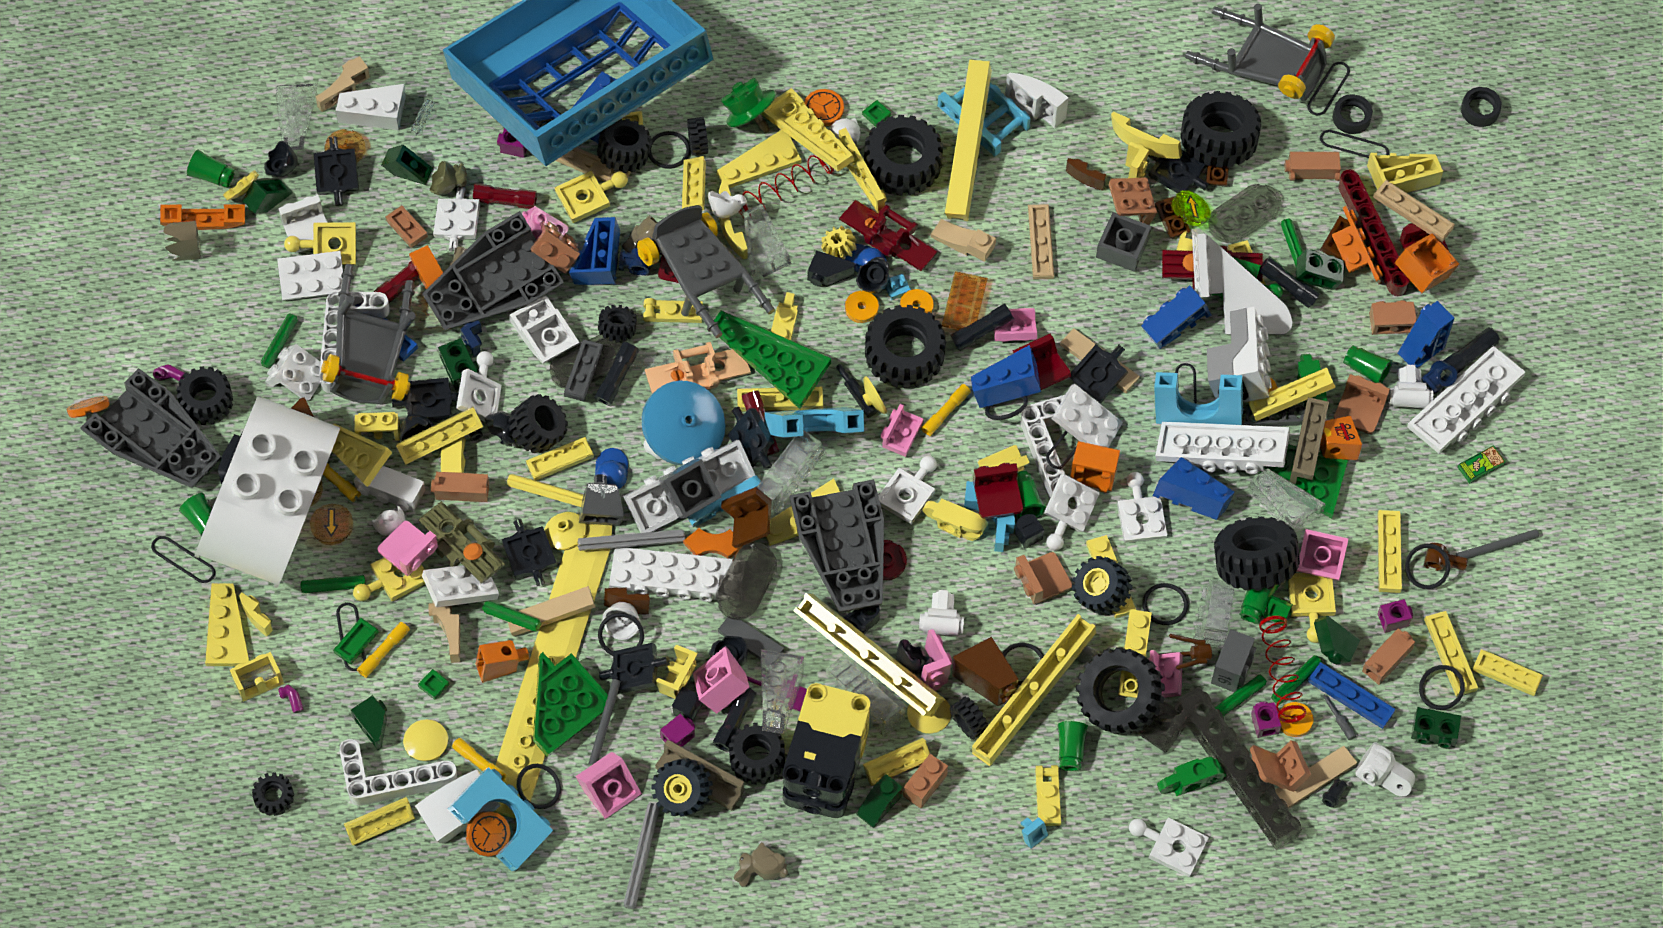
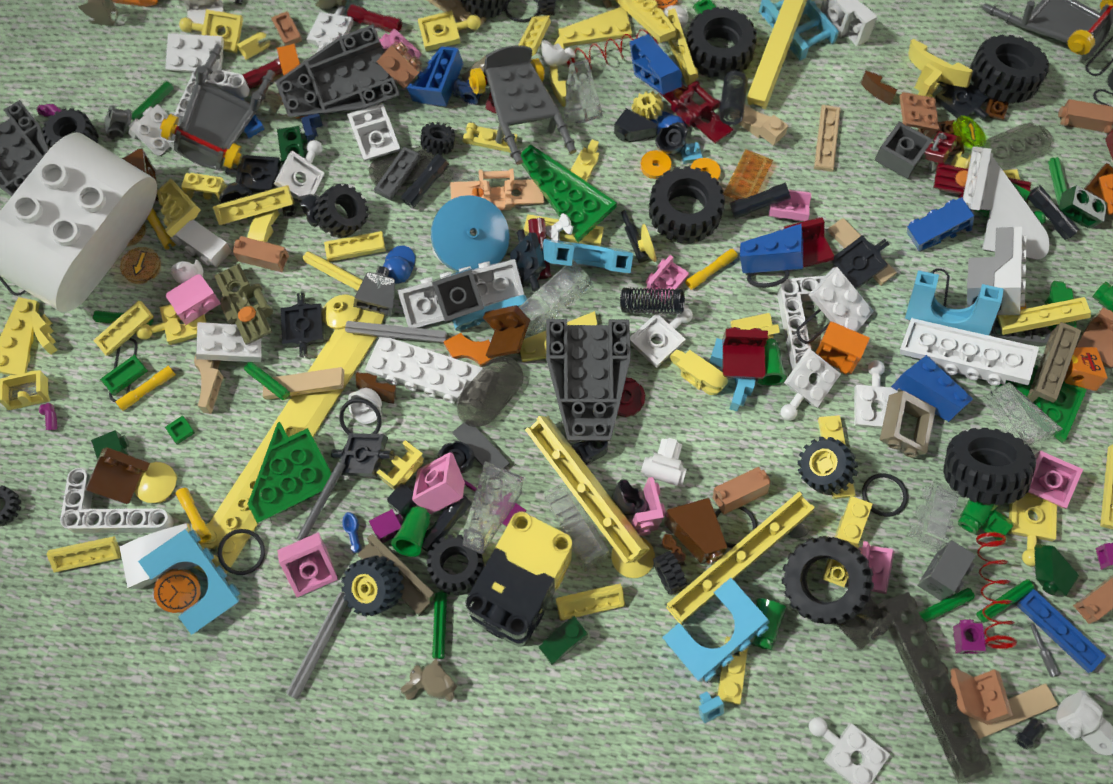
camera: 15 degrees right, 5 degrees up
(254, 371) = (117, 122): none -> dark grey piece
(341, 593) = (123, 328): none -> light yellow plate
(375, 253) = (251, 47): none -> light yellow piece
(391, 735) = (116, 475): none -> reddish brown bracket
(499, 659) = (242, 419): orange torso -> none
(640, 741) = (351, 526): none -> blue piece
(706, 734) = (412, 532): none -> green plant
(755, 813) = (439, 626): none -> green axle
(780, 391) = (563, 223): none -> white piece
(836, 197) = (654, 65): none -> blue wedge
(865, 459) = (626, 299): none -> black piece
(925, 781) = (613, 629): nougat brick -> none
(930, 228) = (728, 94): none -> black piece
(961, 691) = (670, 544): none -> reddish brown piece
(1019, 789) = (704, 661): none -> medium azure arch
(1022, 627) = (741, 490): none -> nougat brick
(1029, 530) = (766, 396): black piece -> none
(1042, 577) = (770, 444): nougat bracket -> none
(1159, 237) = (940, 149): none -> dark red piece
(1179, 511) = (924, 412): none -> dark tan window
(1192, 776) = (884, 683): green piece -> none
(1200, 651) = (913, 552): reddish brown plant -> none
(1299, 728) = (1000, 655): light orange piece -> none

